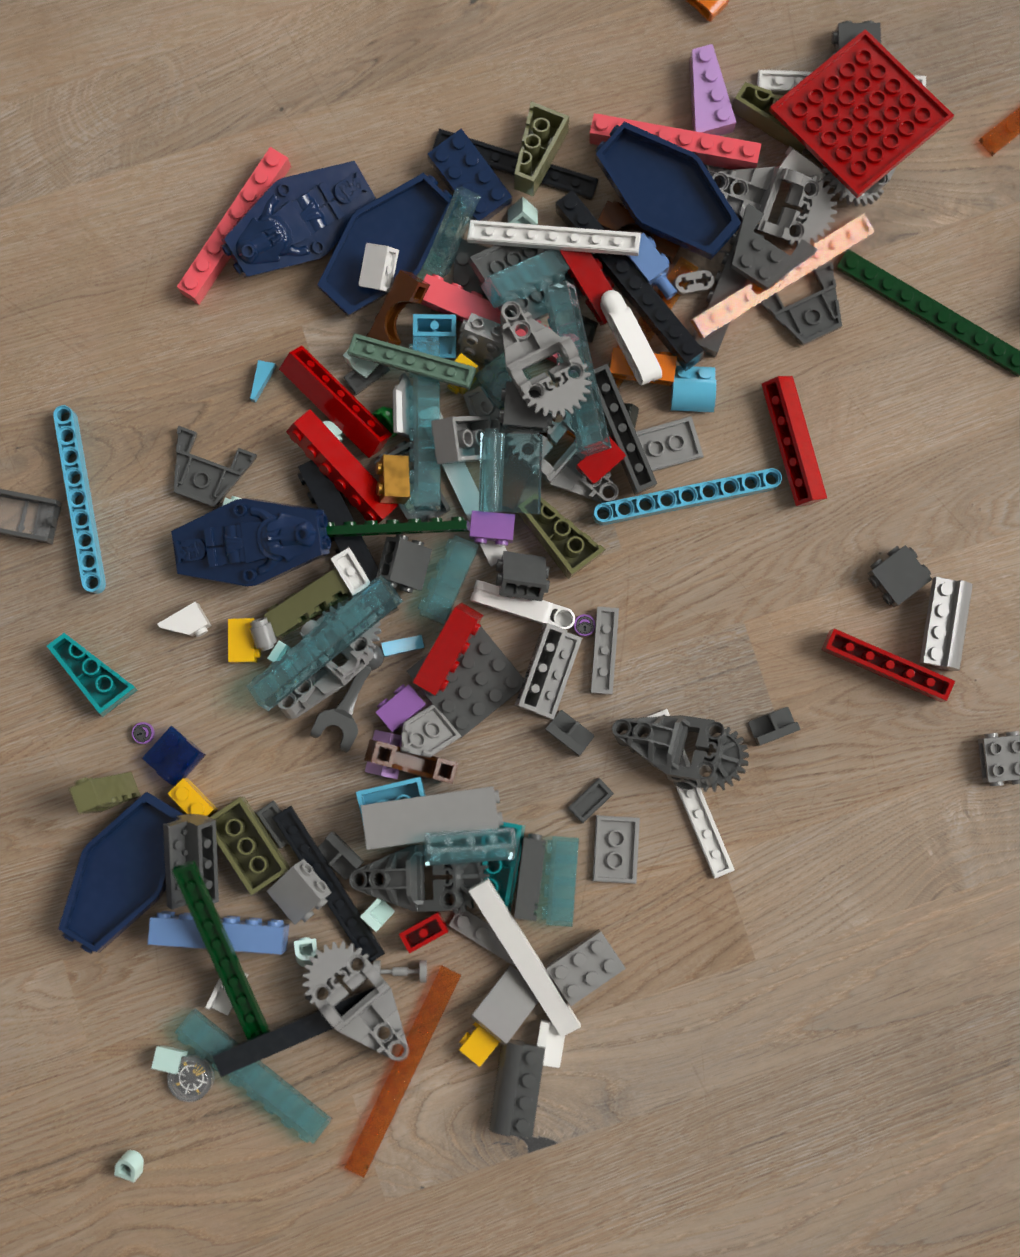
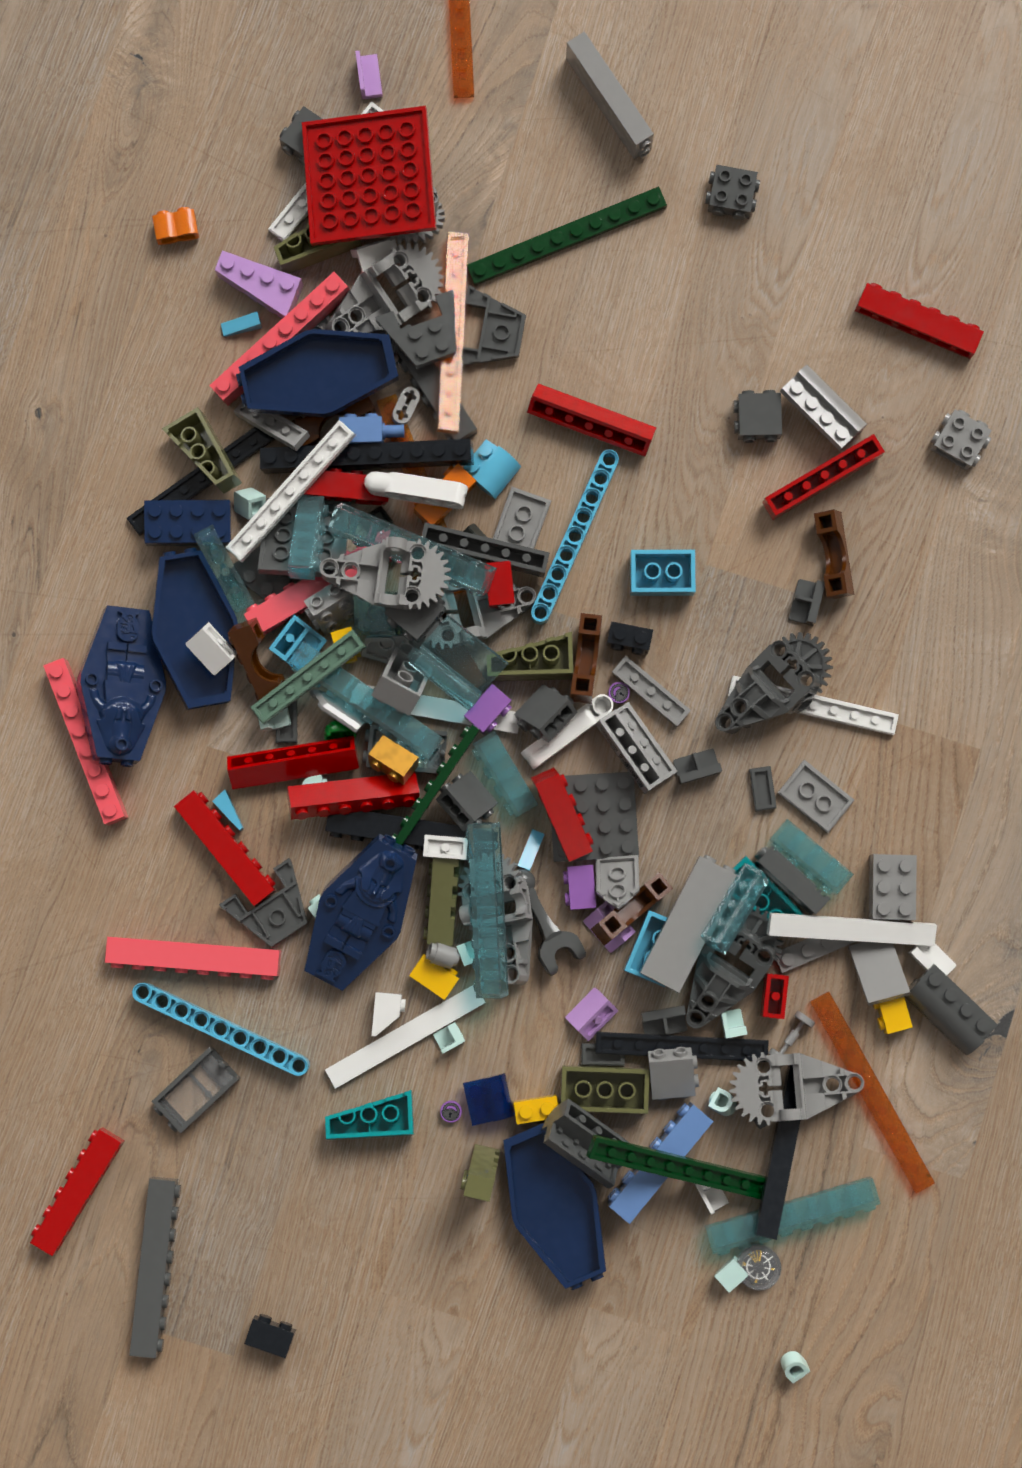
camera: 55 degrees left, 0 degrees up
(122, 436) = (193, 956): none -> coral brick
(175, 650) = (404, 1036): none -> white tile
(202, 688) = (449, 1037): none -> light aqua panel
(228, 397) = (225, 848): none -> red brick
(303, 791) = (591, 1013): none -> lavender panel
(581, 583) = (586, 658): none -> reddish brown arch
(599, 190) = (275, 426): none -> light grey plate
(636, 601) = (629, 637): none -> black brick
(664, 106) = (242, 324): none -> medium azure piece
(709, 589) = (662, 573): none -> medium azure brick
(844, 708) = (838, 572): none -> reddish brown arch
(945, 58) = (369, 76): none -> lavender panel

